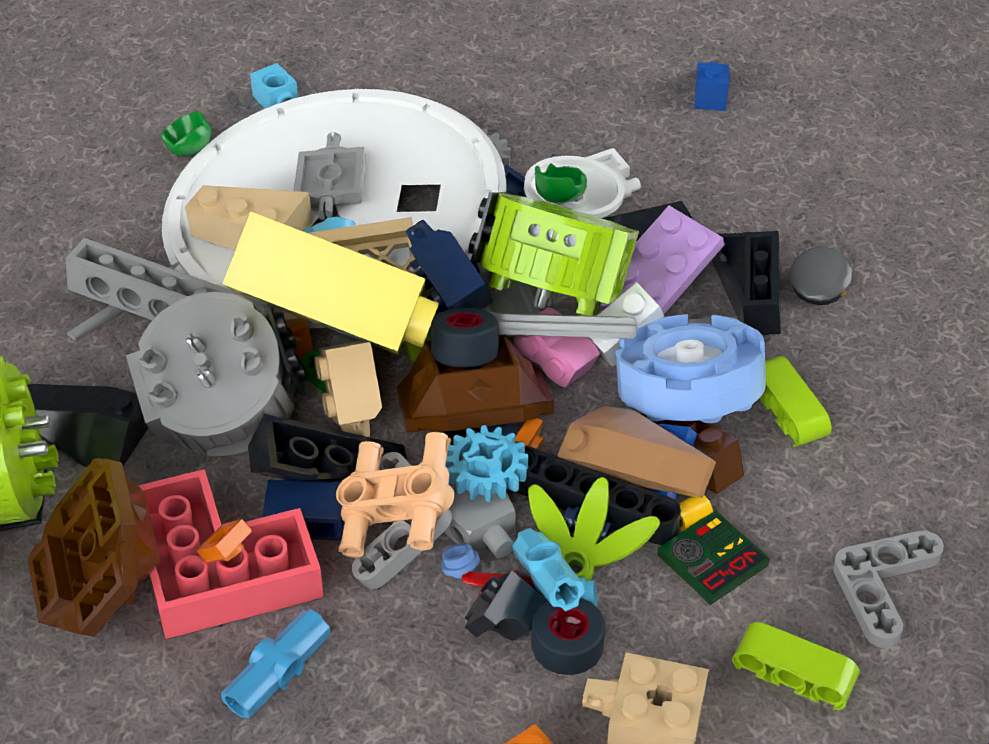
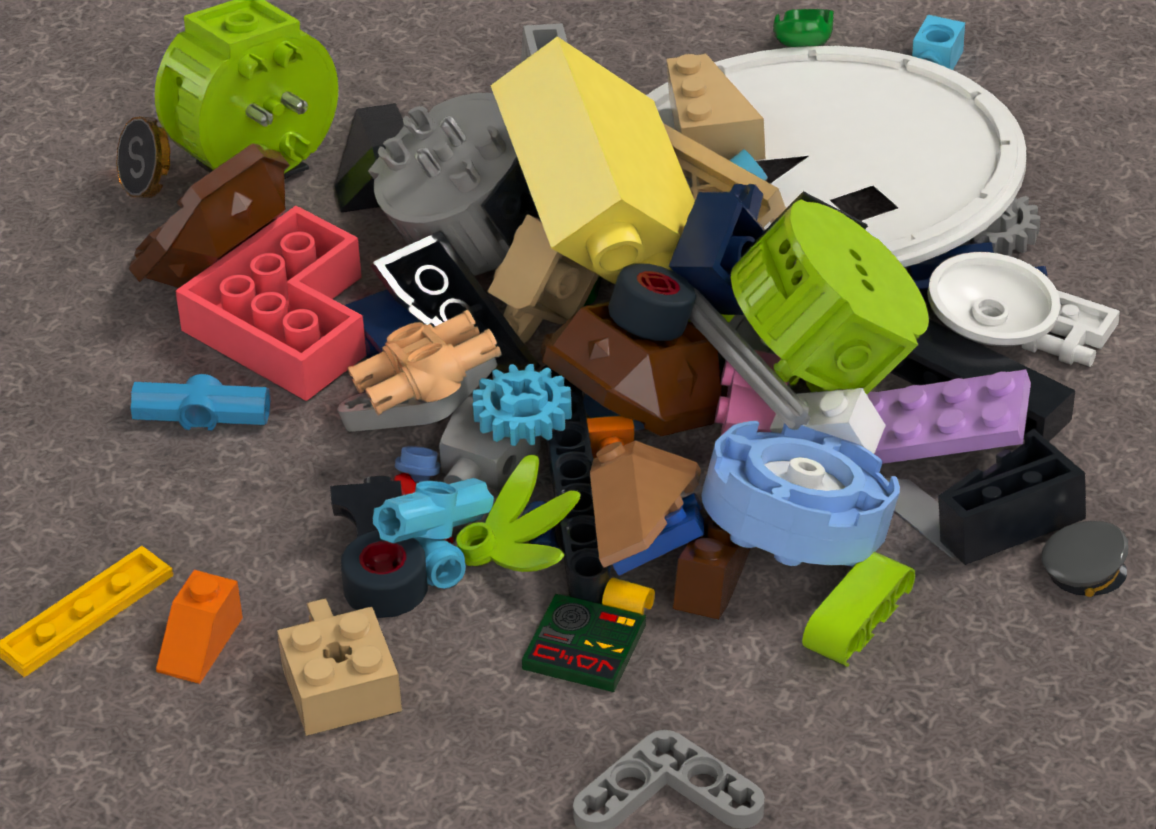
camera: 60 degrees right, 5 degrees down
(225, 542) = (268, 283): orange plate -> none
(331, 175) = (824, 131): light grey plate -> none
(560, 184) = (959, 273): green hair -> none
(797, 664) = (482, 757): lime beam -> none

